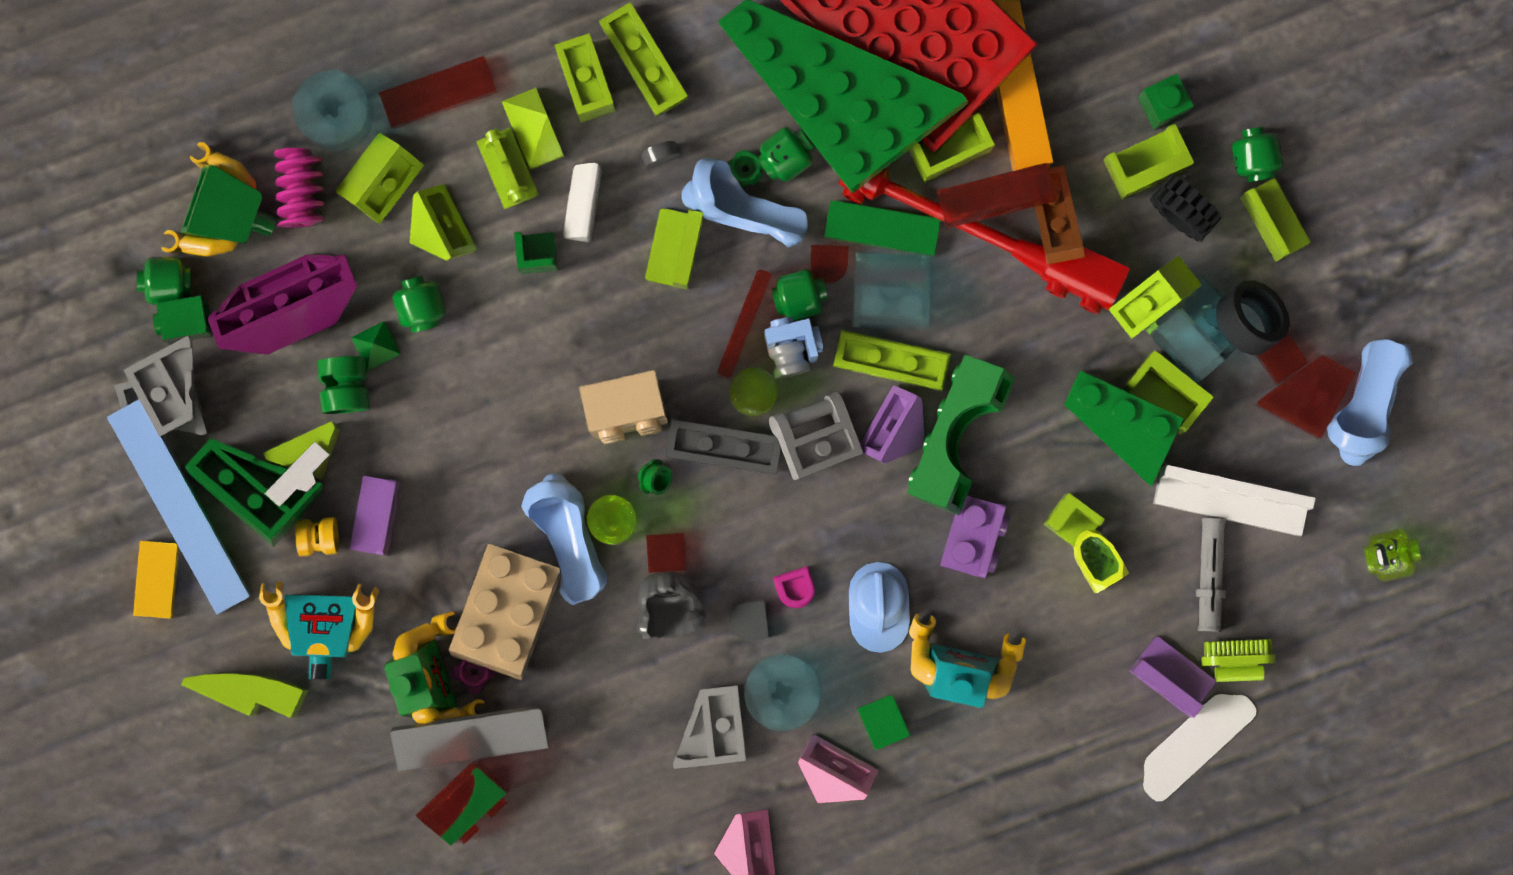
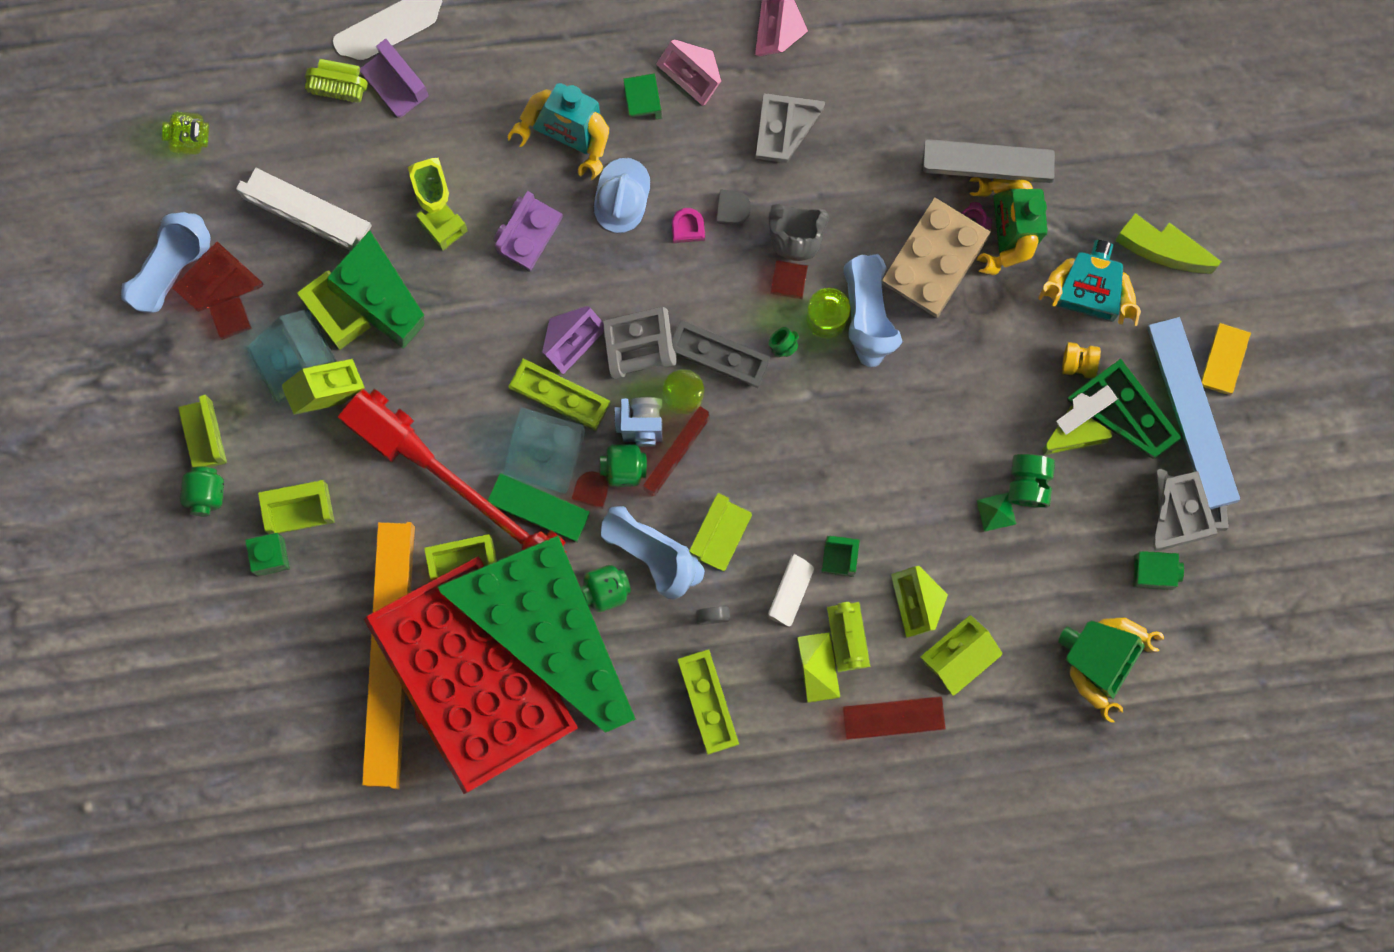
camera: 165 degrees left, 5 degrees down
(164, 279) = (1167, 608): green head -> none
(284, 305) = (1068, 562): magenta wedge -> none
(298, 187) = (1032, 659): dark pink piece -> none
(313, 117) = (996, 702): clear light blue brick -> none
(375, 515) = (1027, 367): medium lavender panel -> none
(419, 304) = (951, 535): green head -> none
(463, 803) = (1006, 113): clear red slope -> none
(585, 77) = (763, 696): lime panel -> none
(624, 407) = (796, 397): tan brick -> none
(746, 158) = (638, 579): green plate -> none
(802, 701) = (722, 122): clear light blue brick -> none
(975, 391) = (542, 283): green arch -> none
(996, 195) = (434, 505): clear red tile -> none
(1059, 222) = (387, 476): dark orange plate -> none
(1185, 208) = (276, 456): black tyre -> none
(1211, 575) = (342, 143): light grey pin -> none
(1266, 305) = (263, 351): black tyre -> none

